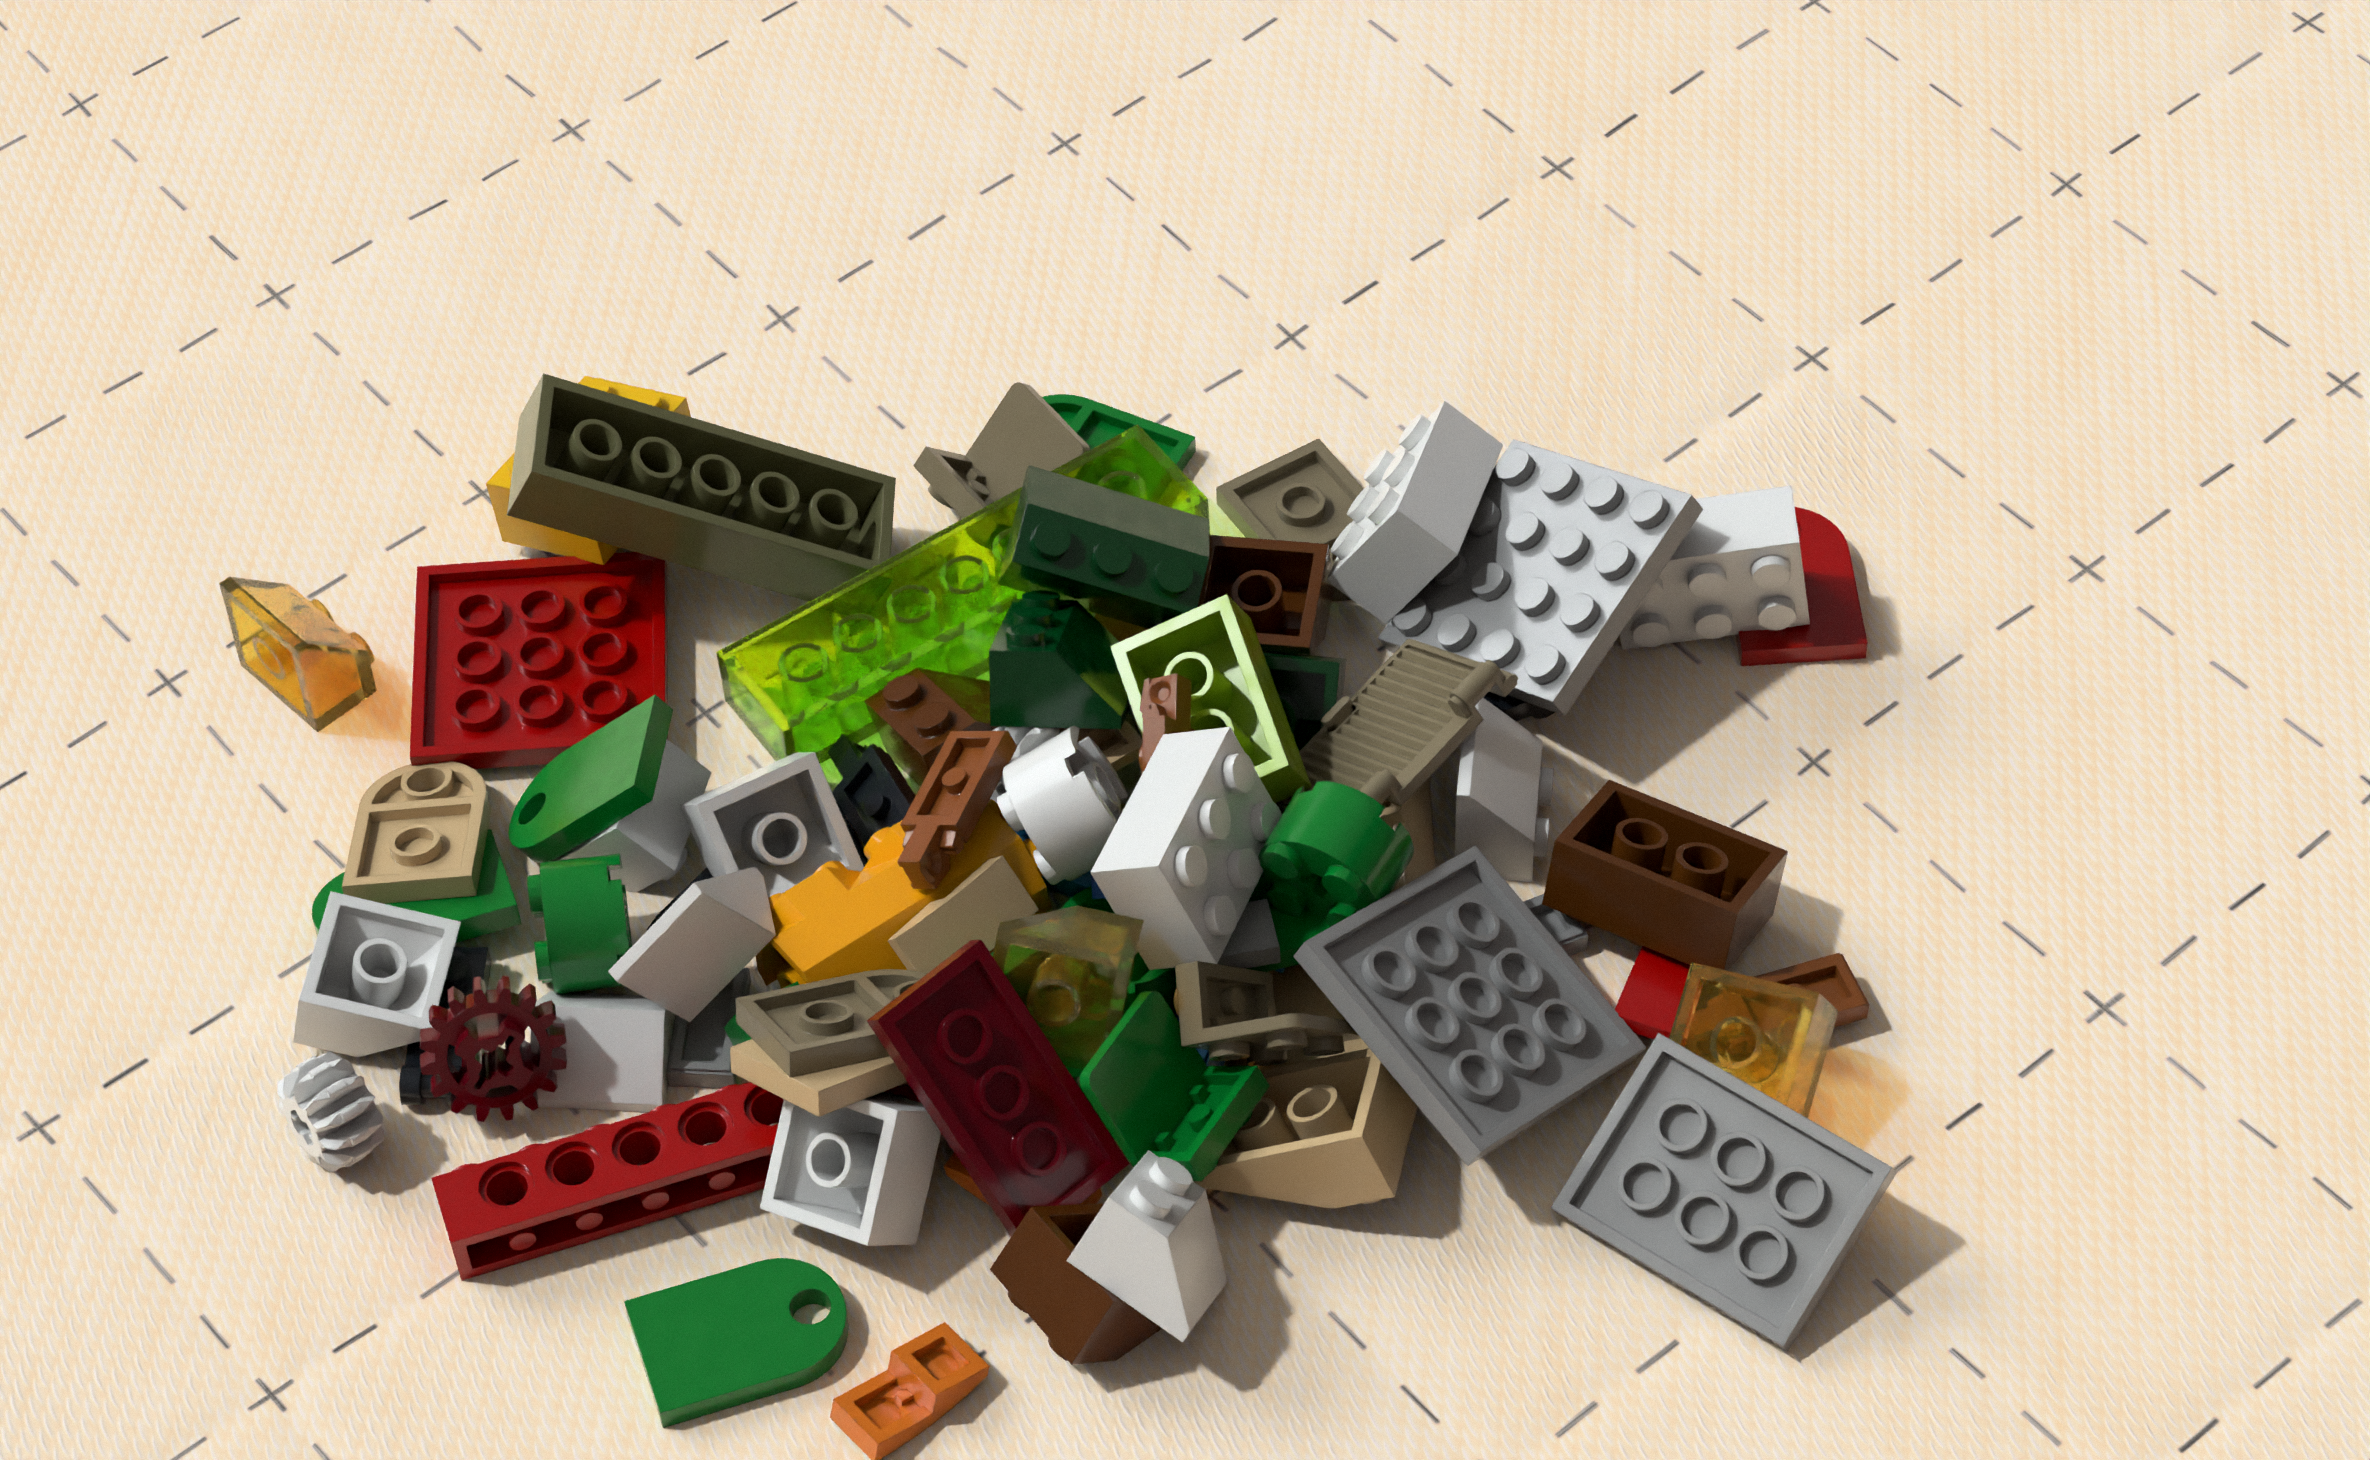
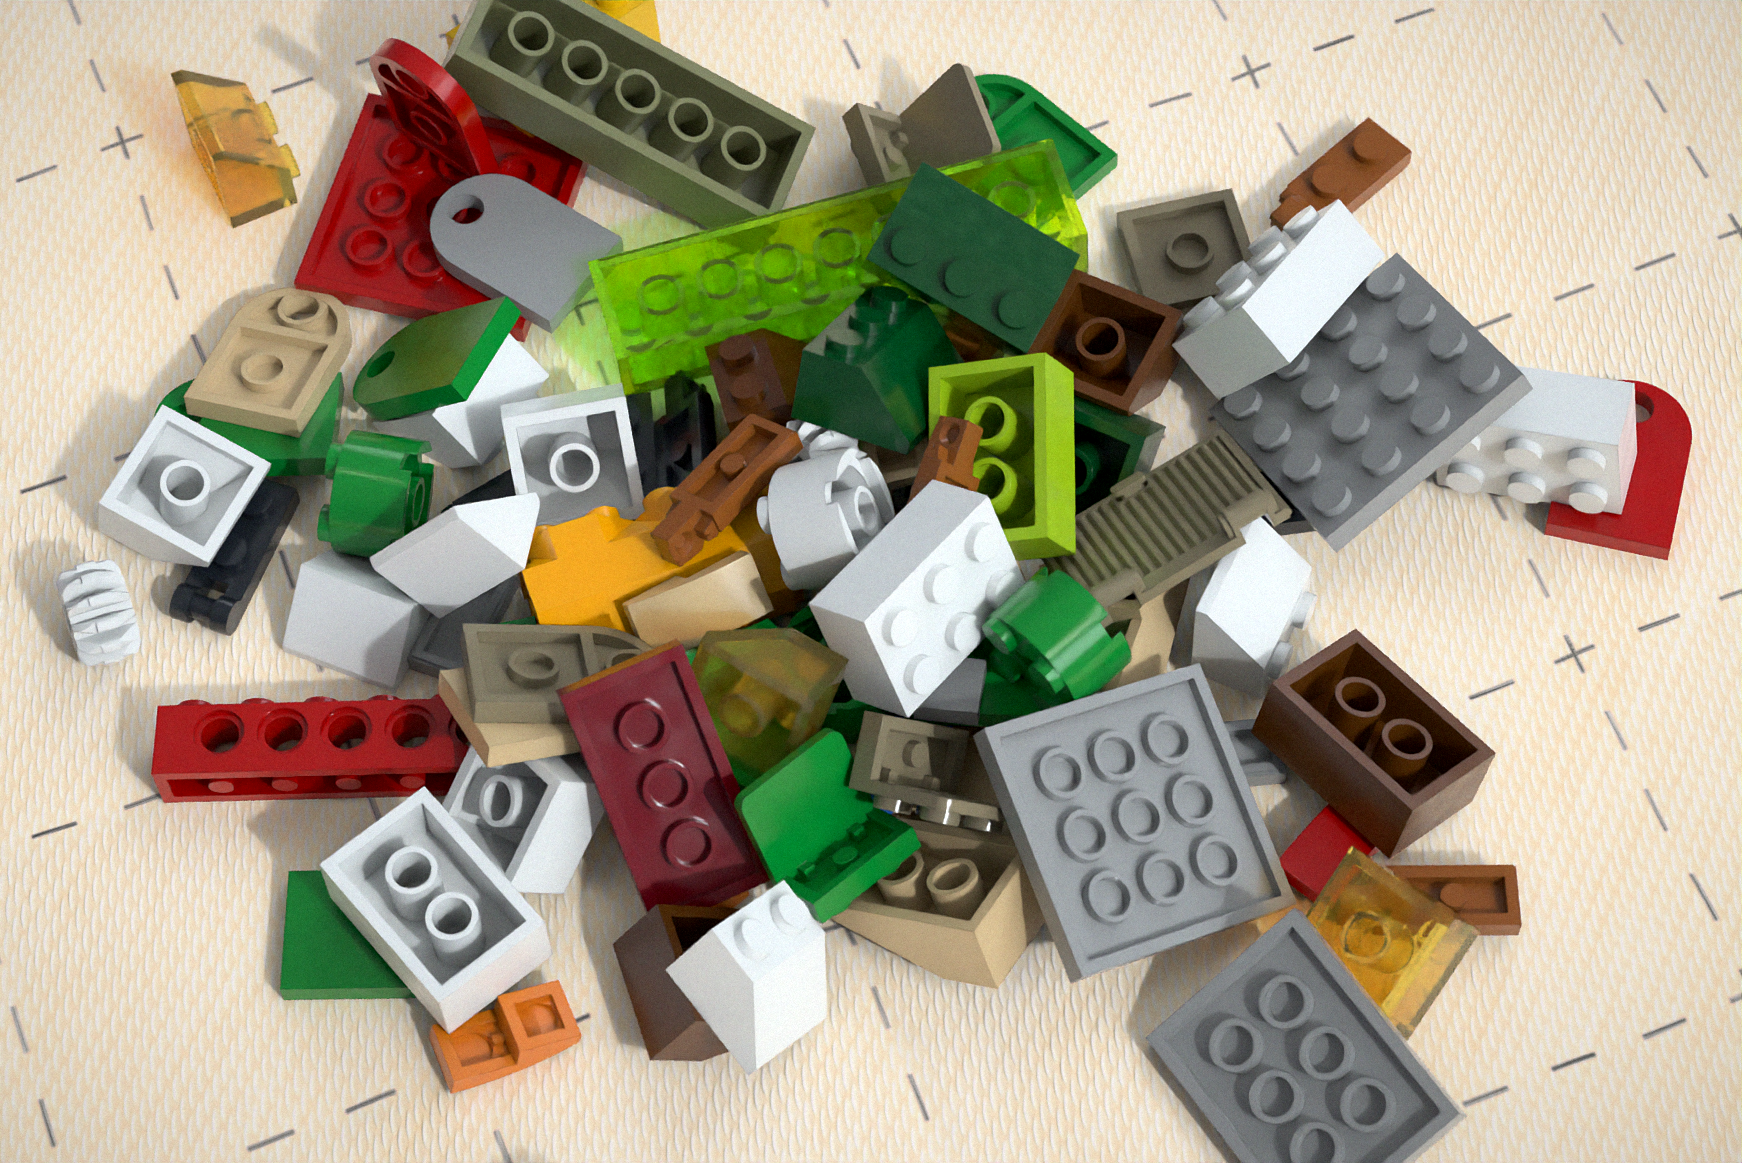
camera: 20 degrees right, 10 degrees up
(485, 1022) = (247, 597): dark red gear -> none
(507, 547) = (432, 107): none -> red tile
(631, 657) = (520, 246): none -> light grey tile
(803, 1281) = (436, 909): none -> white brick
(1425, 385) = (1348, 172): none -> dark orange hinge

